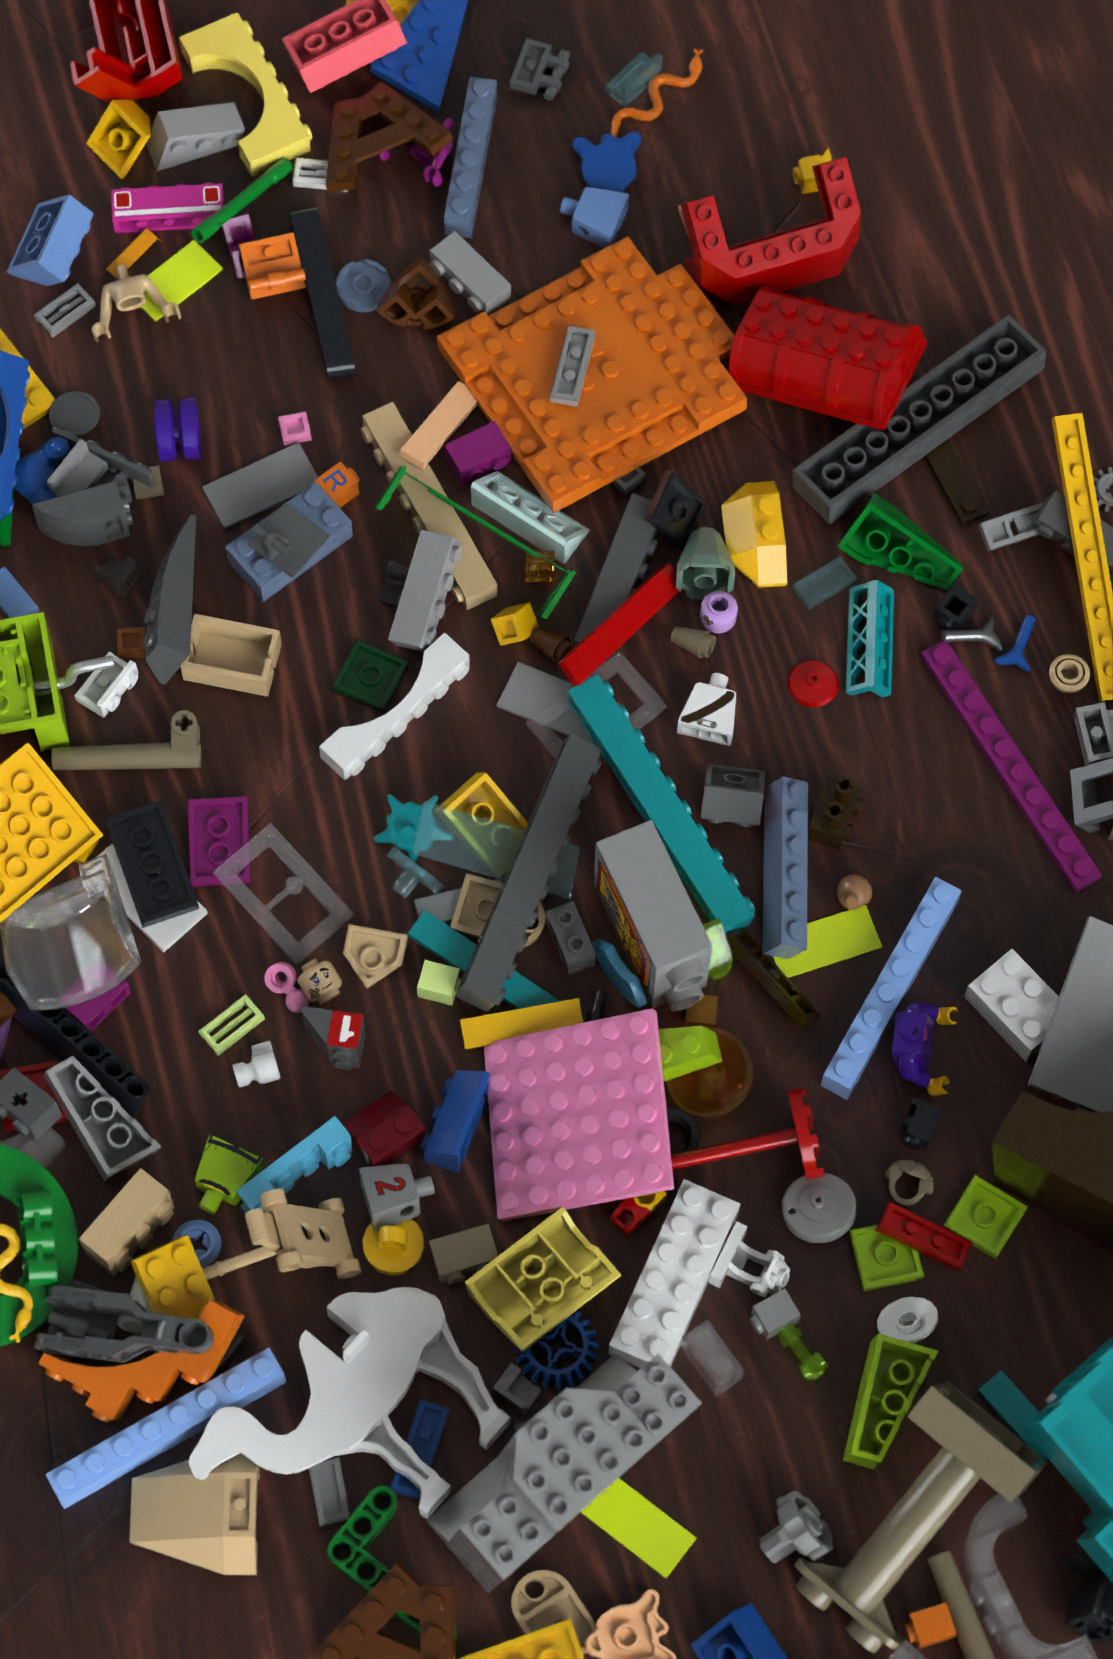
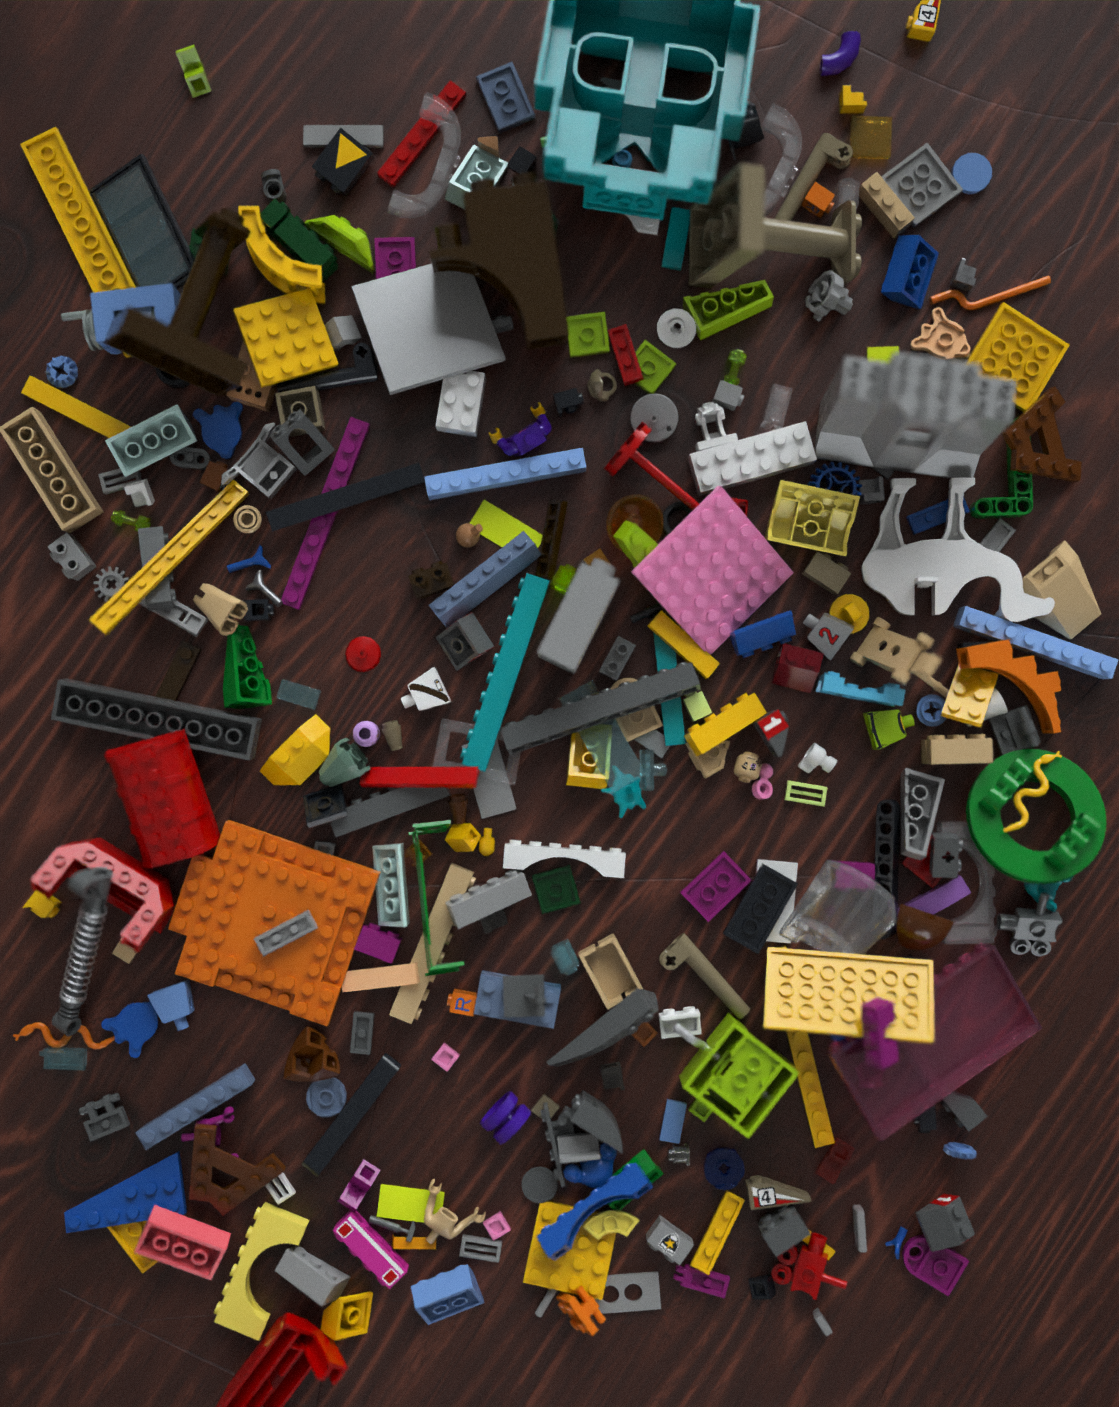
camera: 130 degrees left, 20 degrees up
(72, 342) = (496, 1226): none -> bright pink tile
(159, 1332) = (1006, 678): dark grey piece -> none
(165, 247) = (392, 1226): none -> dark grey piece
(213, 223) = (364, 1211): green piece -> none
(260, 486) = (494, 1045): light grey piece -> none
(272, 265) = (359, 1156): orange plate -> none
(291, 617) = (565, 957): none -> clear light blue brick
(305, 875) = (697, 826): clear door -> none
(391, 991) = (725, 724): none -> yellow brick
(397, 367) = (362, 1032): none -> dark grey plate
(470, 274) = (272, 1042): light grey brick -> none
(486, 644) = (487, 843): none -> yellow cylinder
(619, 974) = (614, 619): dark azure tile -> none
(783, 207) = (93, 887): none -> dark grey piece
(876, 636) = (310, 639): teal fence -> none
(989, 569) = (220, 607): none -> tan piece
(1008, 795) = (345, 497): none -> black tile

